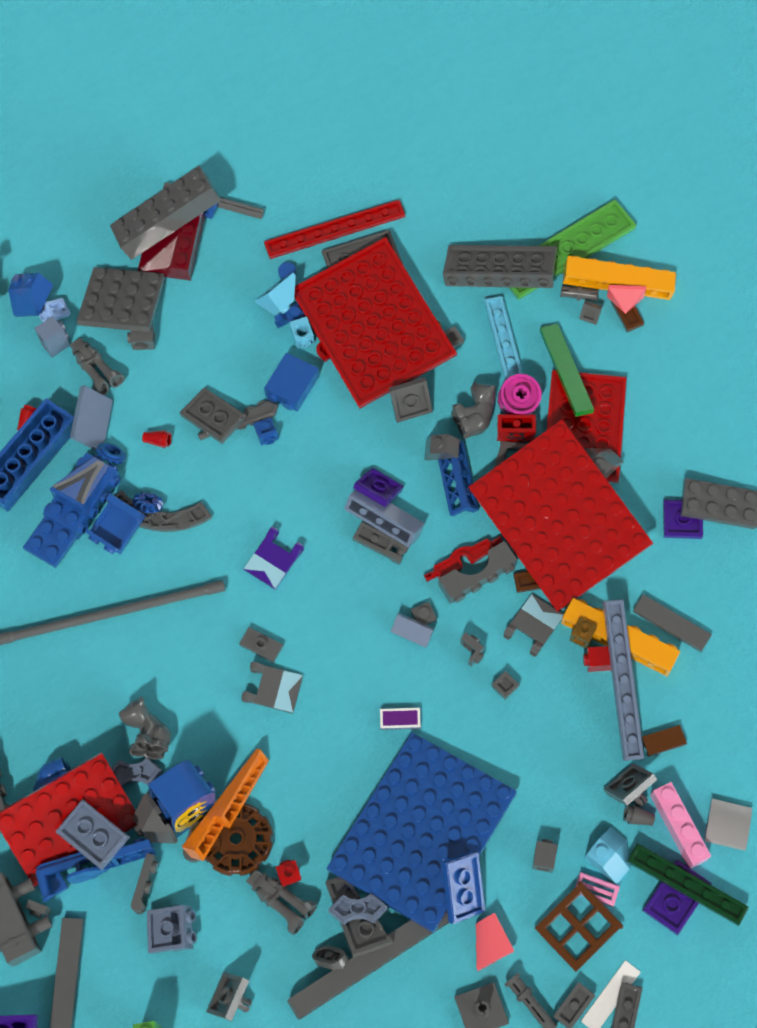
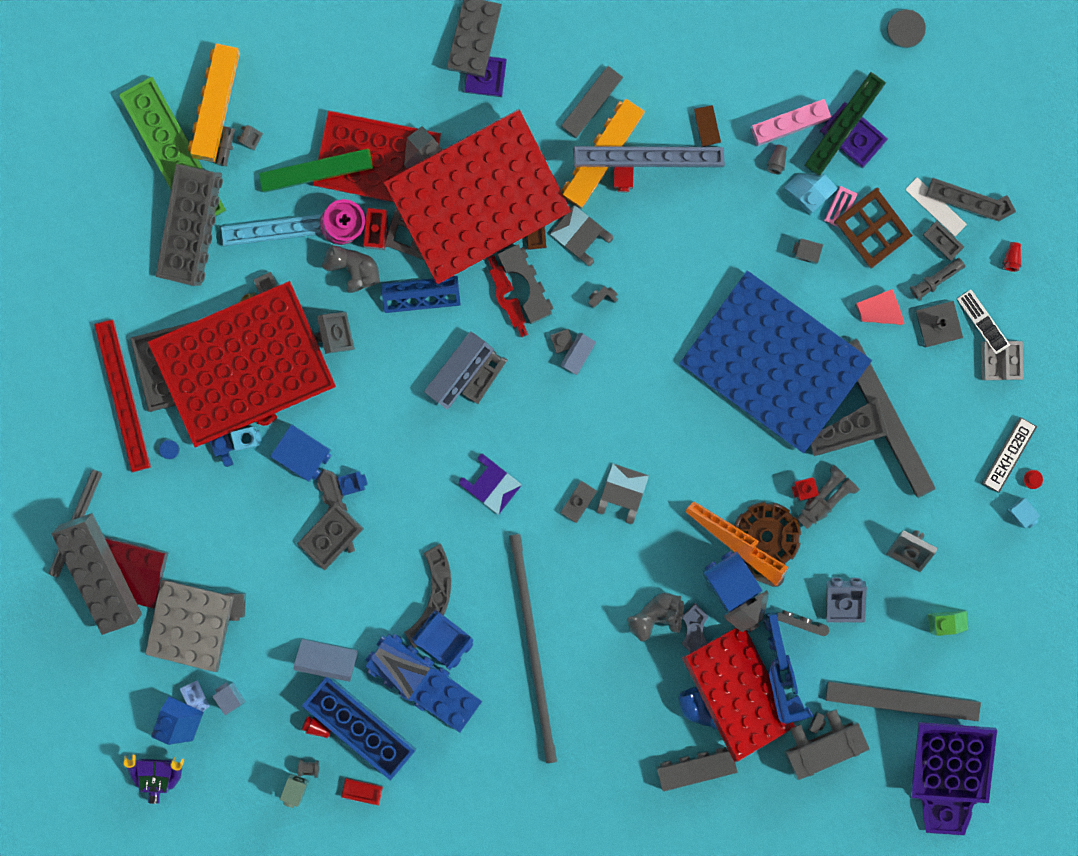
camera: 85 degrees left, 20 degrees up
(89, 358) = (252, 662): dark grey piece -> none
(92, 834) = (760, 668): sand blue tile -> none
(110, 453) = (358, 646): blue gear -> none
(147, 502) = (427, 607): blue gear -> none
(158, 438) = (350, 593): red cone -> none
(279, 296) = (202, 460): medium azure slope -> none
(330, 957) = (885, 453): dark grey plate -> none
(349, 909) = (845, 419): sand blue tile -> none
(378, 487) = (427, 373): dark purple tile -> none
(400, 718) = (664, 373): dark purple tile -> none
(441, 447) = (392, 306): dark grey slope -> none
(463, 887) = (834, 329): tile -> none
(505, 685) = (641, 269): dark grey plate -> none
(583, 633) = (597, 188): pearl gold bracket -> none
(625, 296) = (238, 99): coral slope -> none
(630, 320) = (251, 99): reddish brown tile -> none
(631, 785) = (750, 163): dark grey tile -> none
(728, 824) = (792, 78): light grey slope -> none

